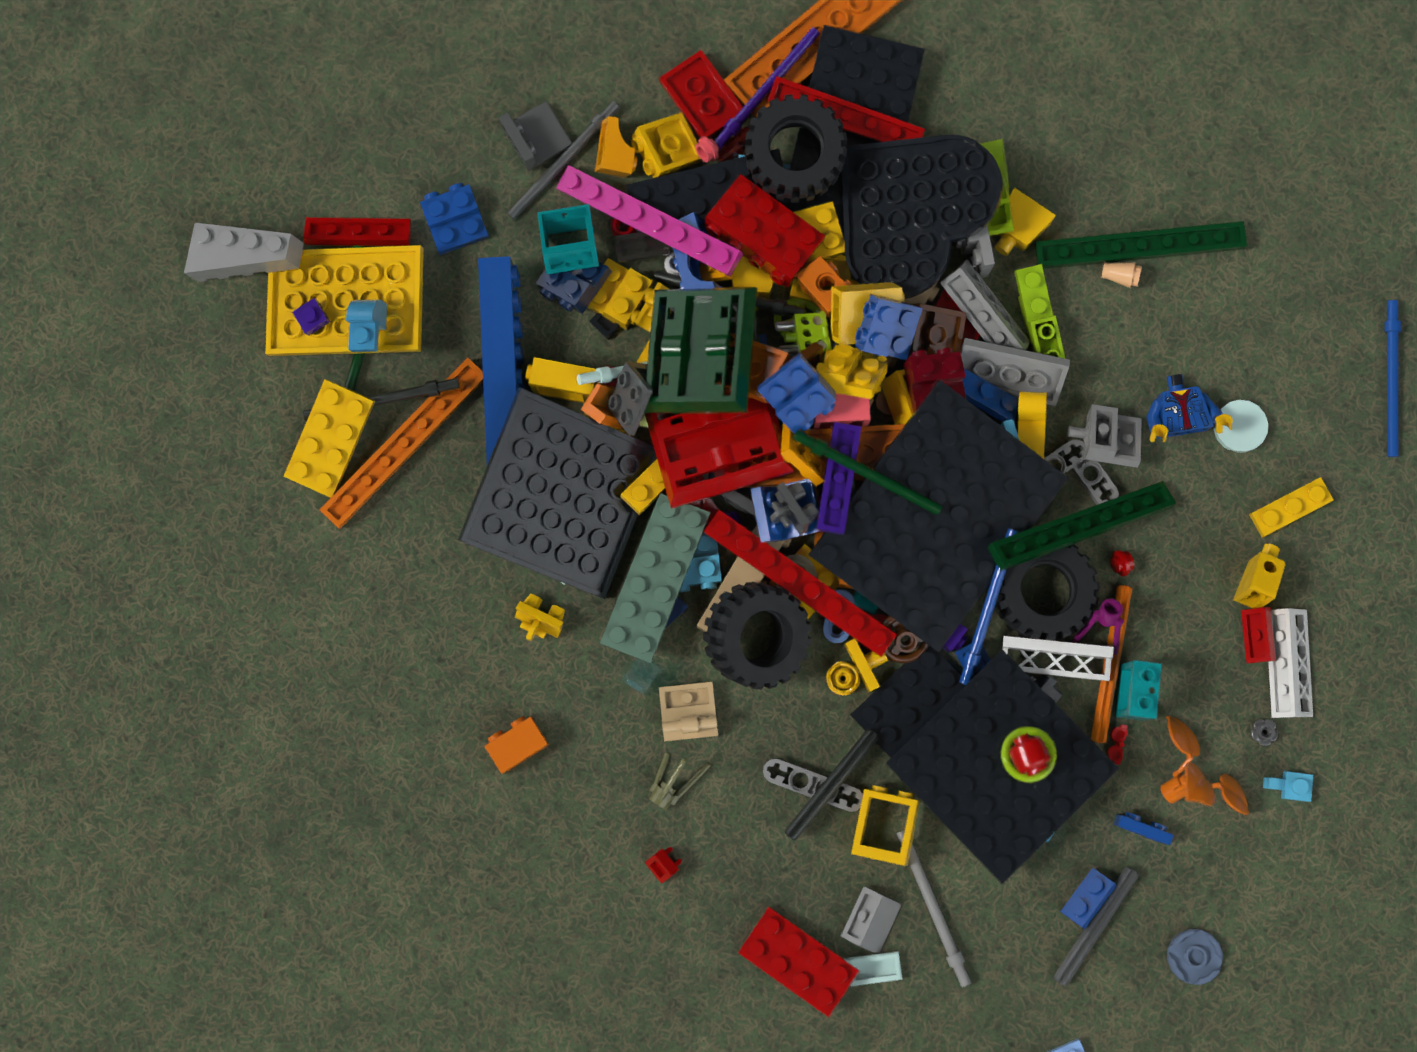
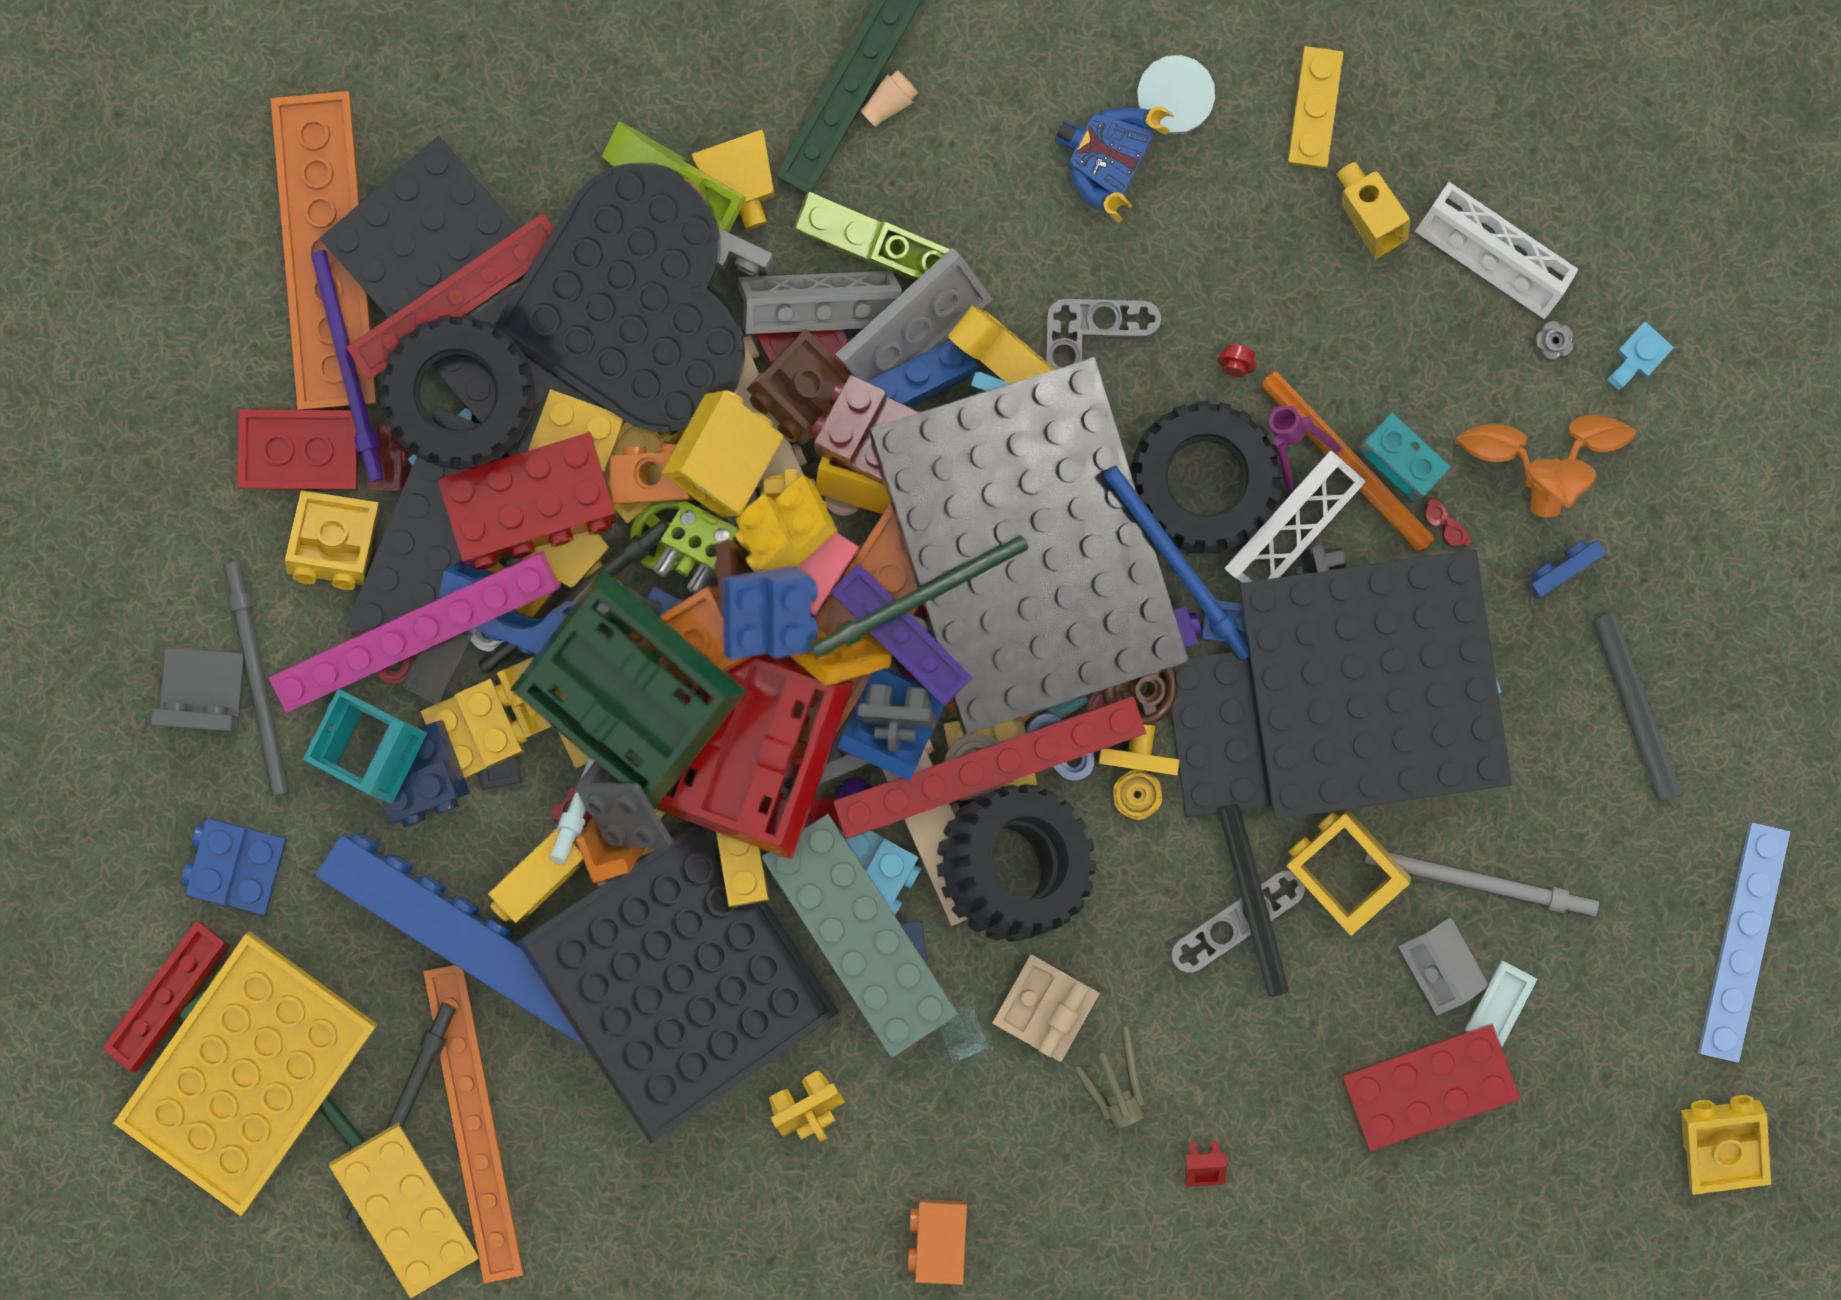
camera: 55 degrees left, 5 degrees up
(233, 251) = (82, 1171): light grey wedge -> none
(311, 316) = (237, 1128): dark purple plate -> none
(365, 321) = (294, 1067): dark azure brick -> none
(613, 153) = (293, 613): light orange arch -> none
(707, 149) = (373, 494): coral plate -> none
(887, 327) = (760, 442): blue plate -> none
(1006, 757) = (1415, 649): lime piece -> none
(1029, 755) = (1388, 649): red head -> none
(1081, 525) = (1161, 382): dark green plate -> none
(1088, 898) = (1599, 692): blue plate -> none
(1110, 436) = (1078, 263): light grey plate -> none
(1194, 956) = (1739, 617): sand blue tile -> none
(1258, 635) = (1438, 263): red plate -> none

